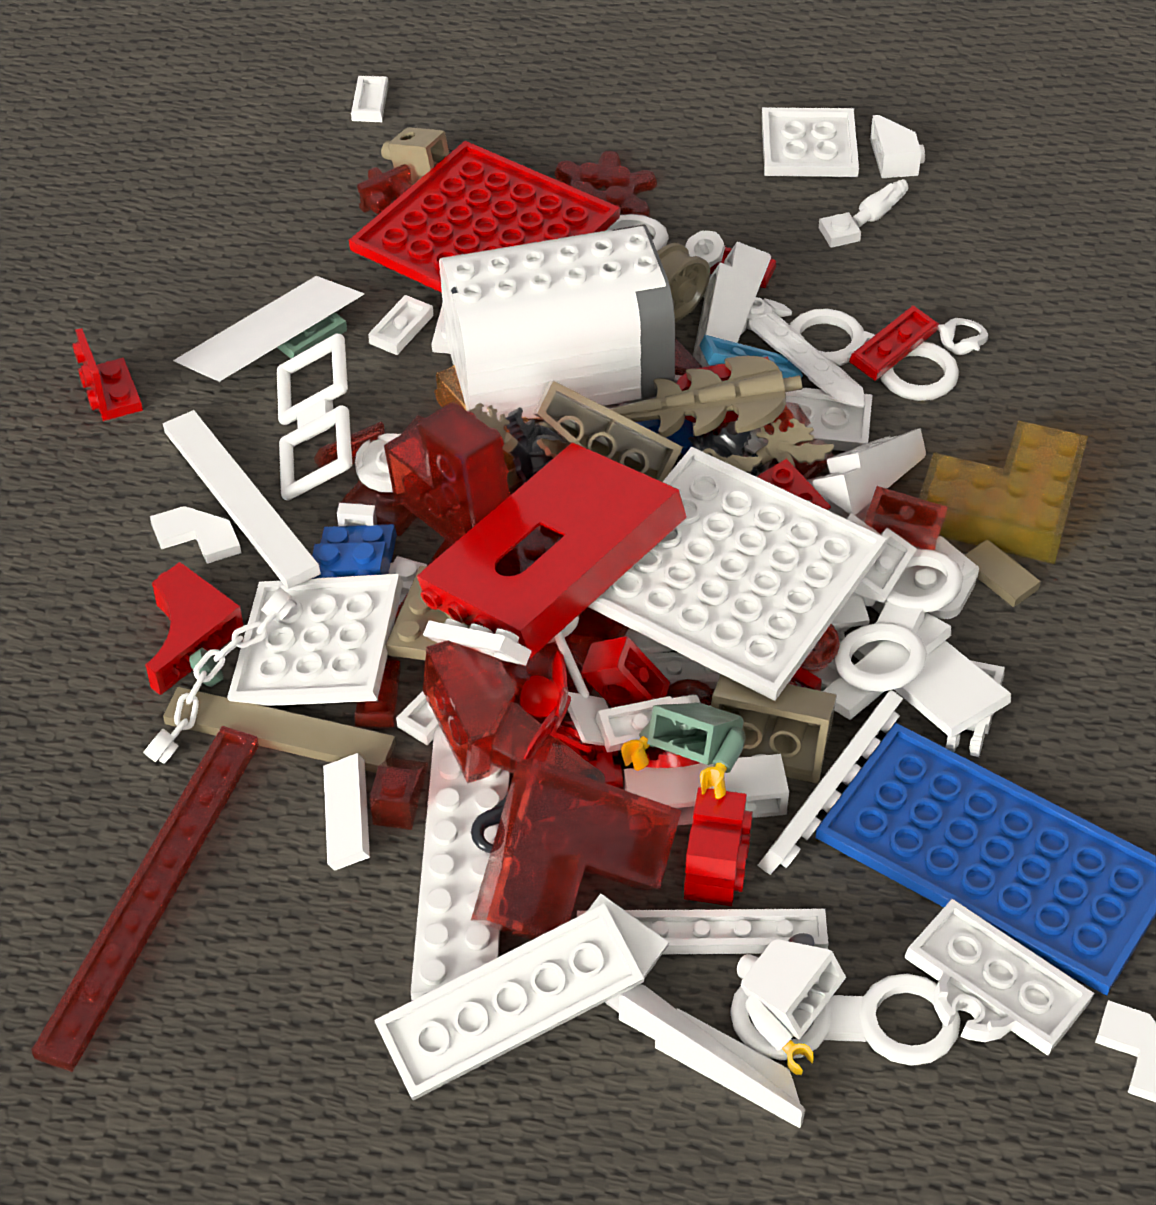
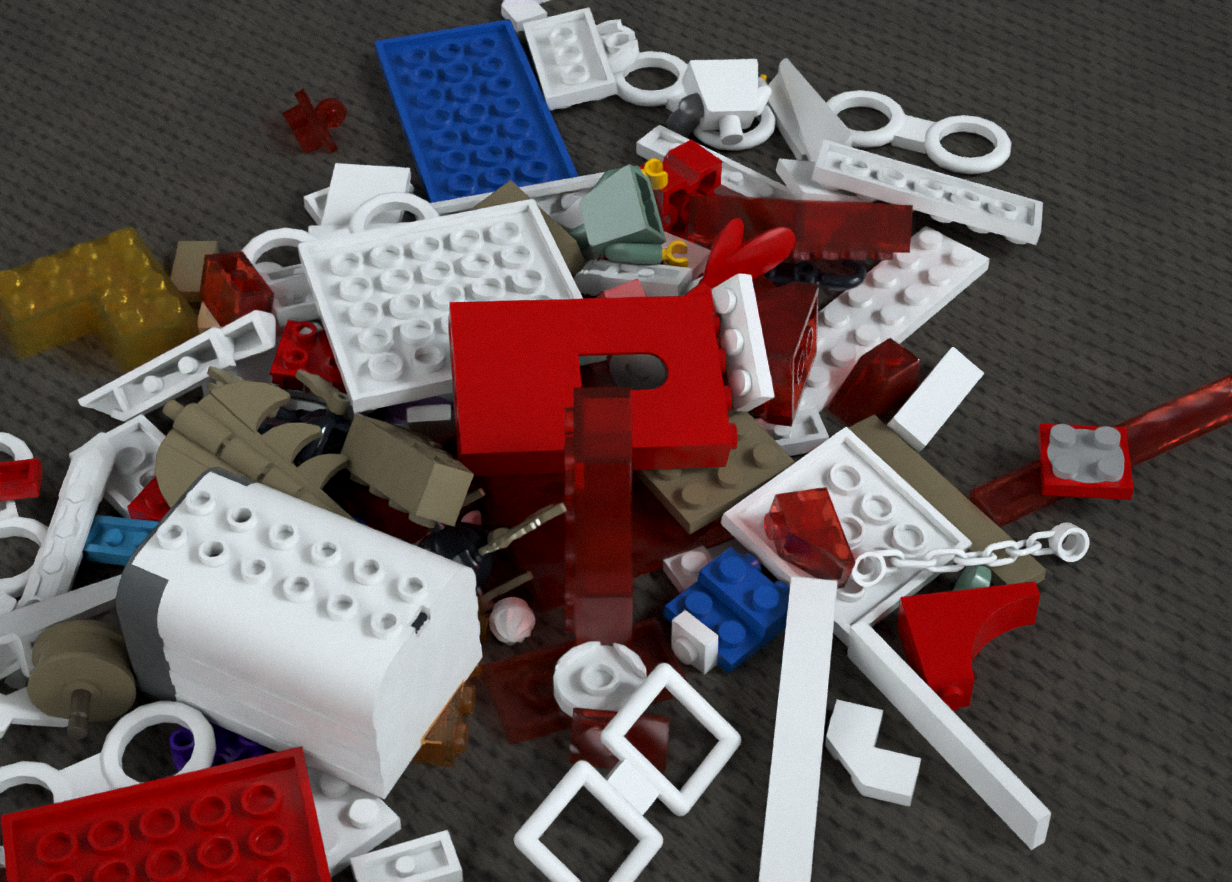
camera: 140 degrees left, 5 degrees down
(151, 558) = (949, 735): none -> white tile
(183, 802) = (1085, 461): none -> piece
(326, 588) = (810, 534): none -> clear red slope
(605, 1124) = (925, 135): none -> white bar
(1103, 749) = (311, 123): none -> clear red hips

